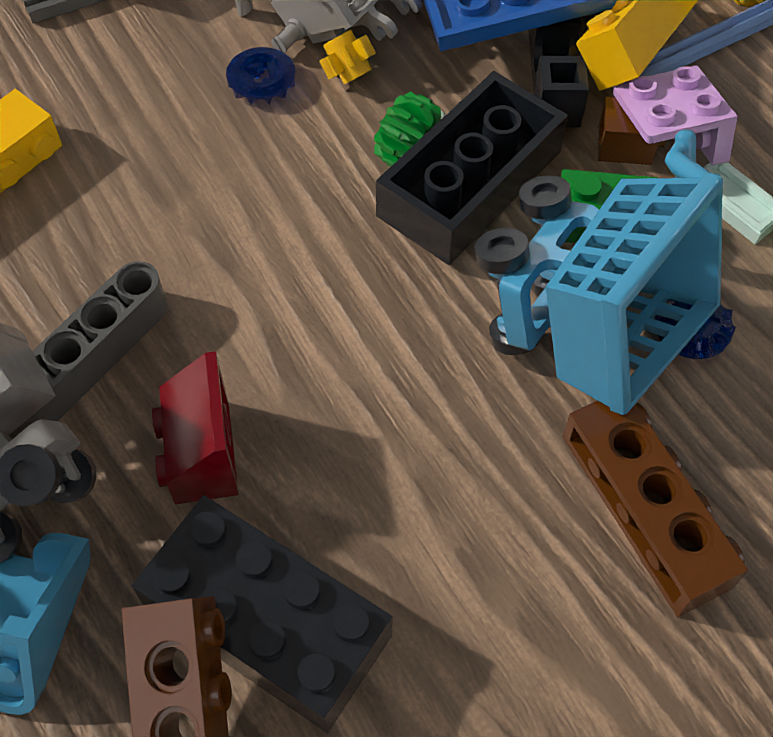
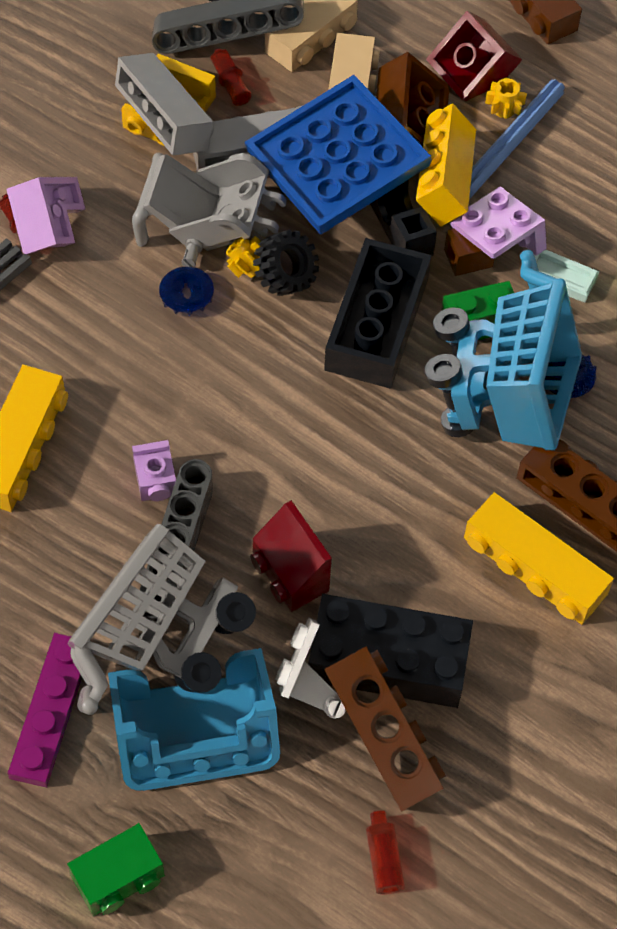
camera: 25 degrees left, 0 degrees up
(97, 257) = (154, 470): none -> lavender brick
(102, 595) = (301, 681): none -> white plate
(362, 71) = (271, 267): none -> black tyre
(405, 125) = (323, 301): green gear -> none
(539, 561) = (537, 558): none -> yellow brick

